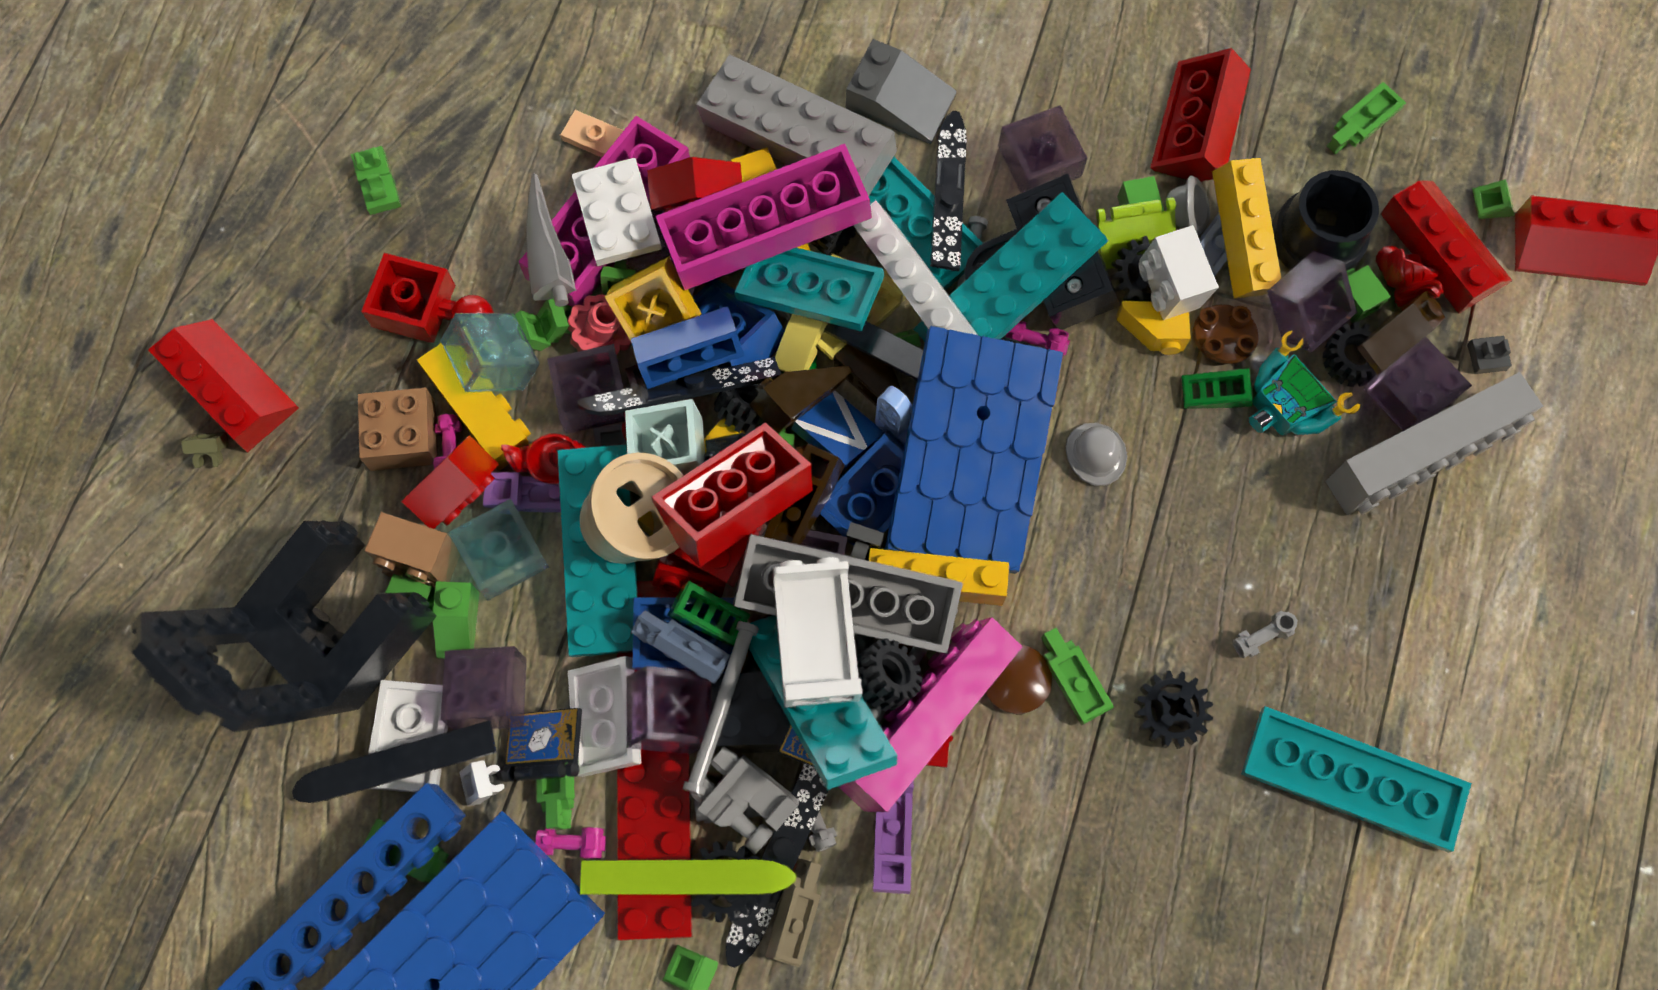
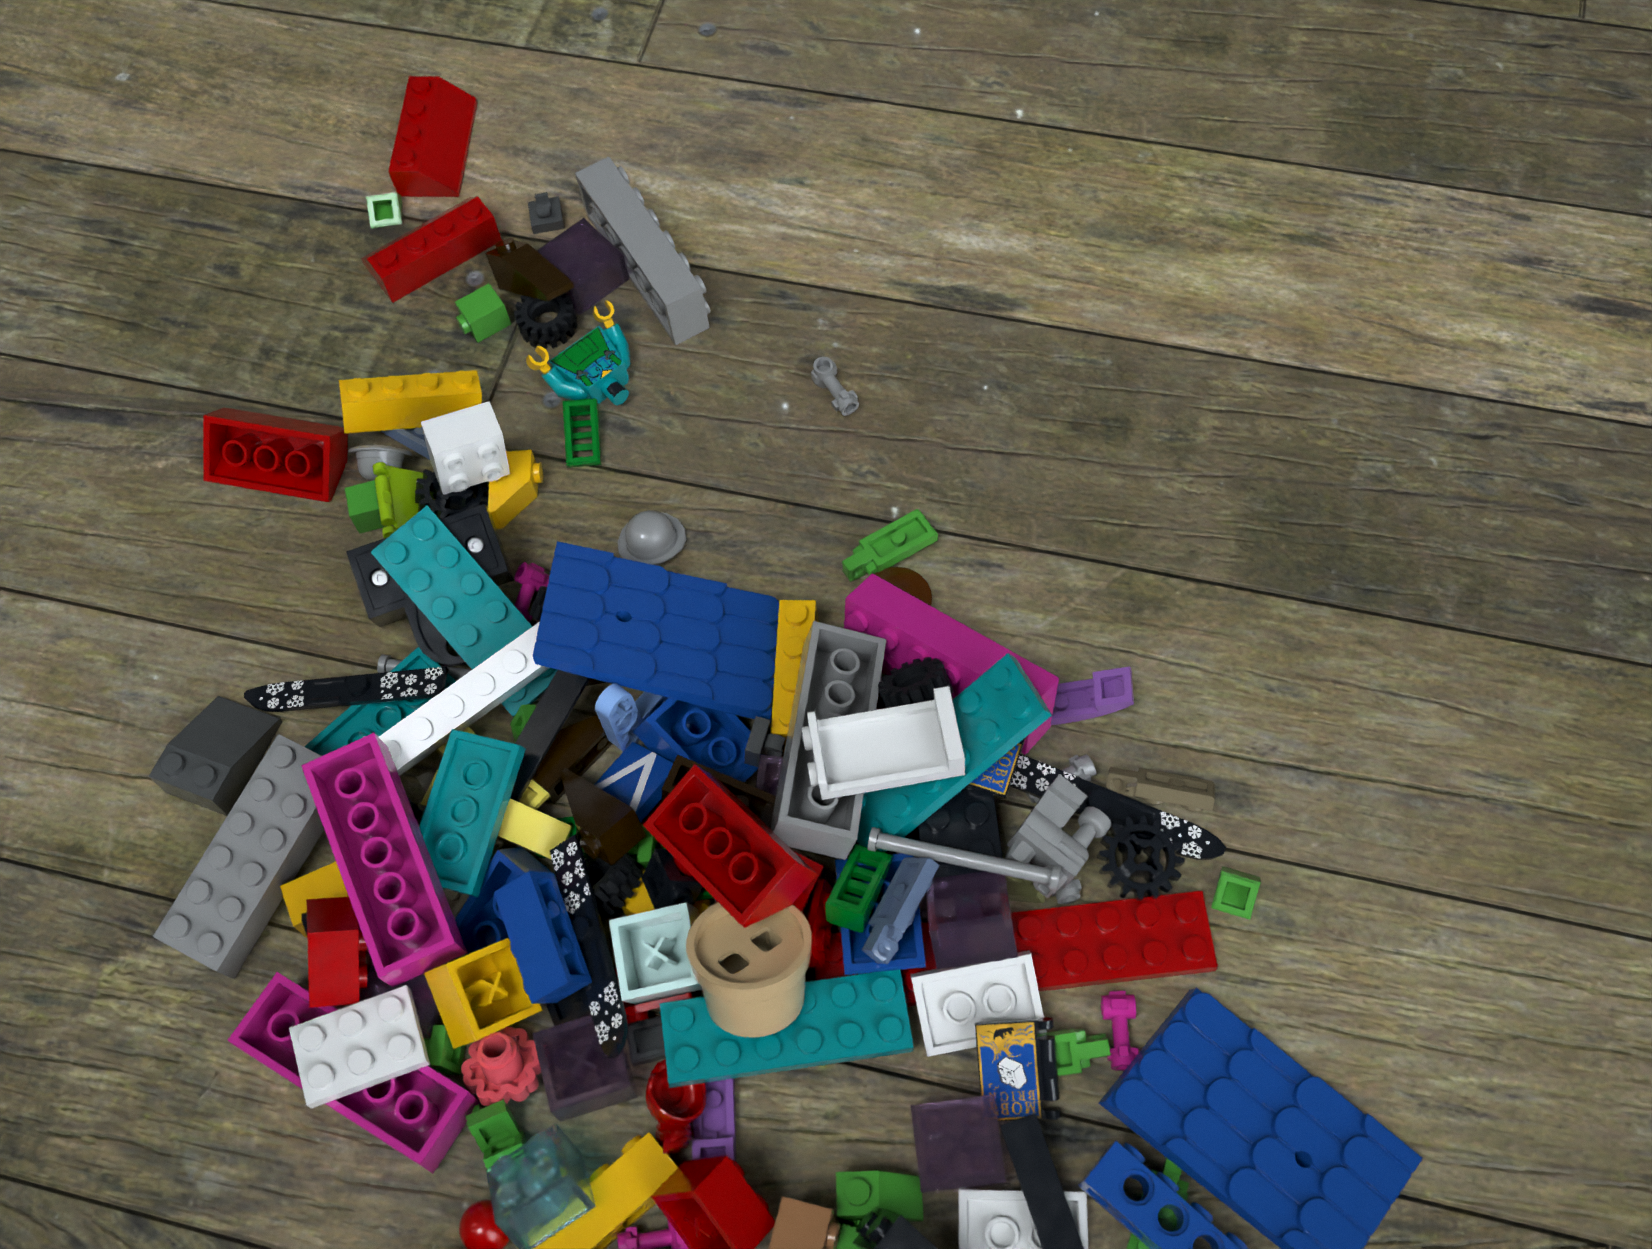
camera: 85 degrees left, 10 degrees down
(477, 784) = (1068, 1143): white tile -> none
(498, 549) = (790, 1148): clear light blue brick -> none
(547, 262) = (422, 1125): light grey piece -> none
(590, 133) = (242, 1106): light nougat plate -> none
(683, 877) = (1145, 898): lime piece -> none
(1041, 149) = (306, 597): brick -> none
(1185, 716) = (916, 461): black gear -> none
(1226, 333) = (525, 424): reddish brown dish -> none
(1312, 300) = (491, 345): brick -> none
(1337, 191) = (409, 311): black piece -> none
(1357, 779) = (965, 316): teal plate -> none
(1366, 117) = (287, 311): bright green hinge -> none
(1407, 275) = (466, 273): red hair -> none

